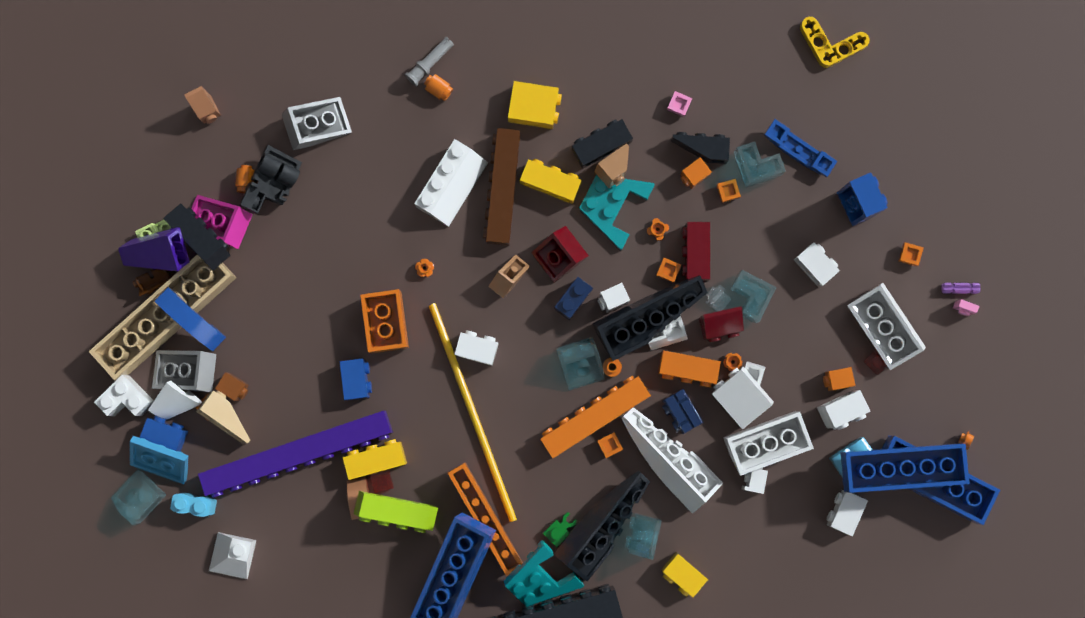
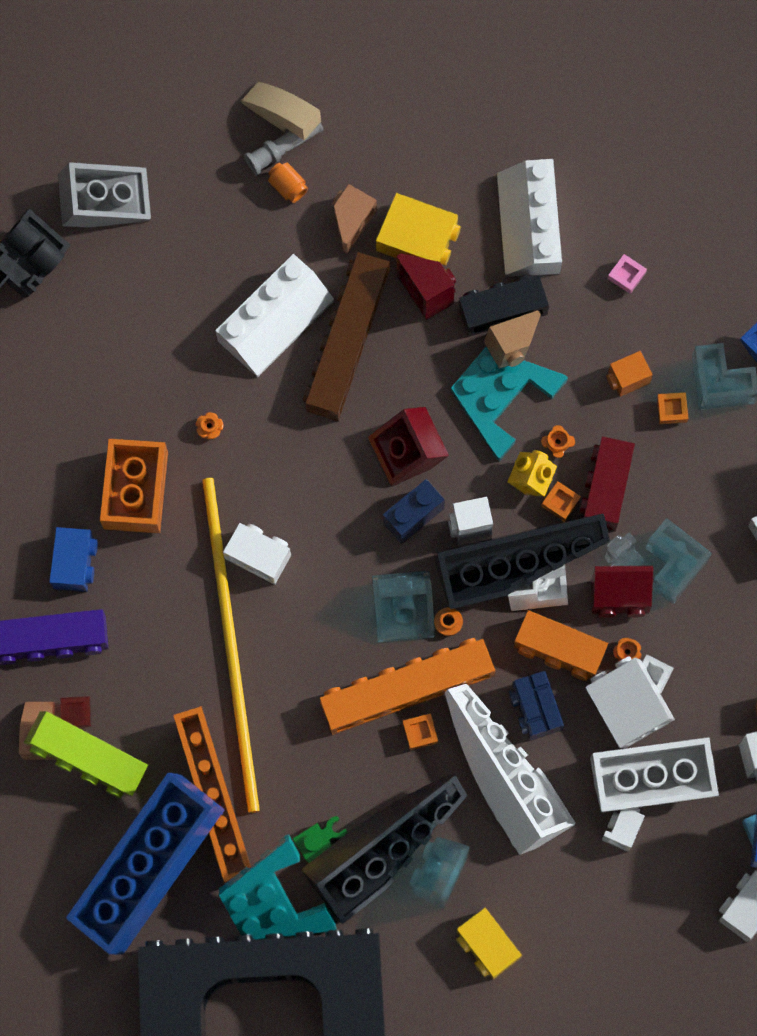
camera: 15 degrees right, 10 degrees down
(374, 459) = (72, 678): yellow brick -> none
(423, 36) = (283, 109): none -> tan slope
(487, 100) = (352, 214): none -> nougat slope
(509, 276) = (327, 461): medium nougat slope -> none
(548, 140) = (426, 283): none -> dark red slope
(550, 181) = (418, 342): yellow brick -> none
(606, 79) = (529, 219): none -> white slope
(646, 255) = (532, 473): none -> yellow brick
(709, 148) = (659, 344): black slope -> none

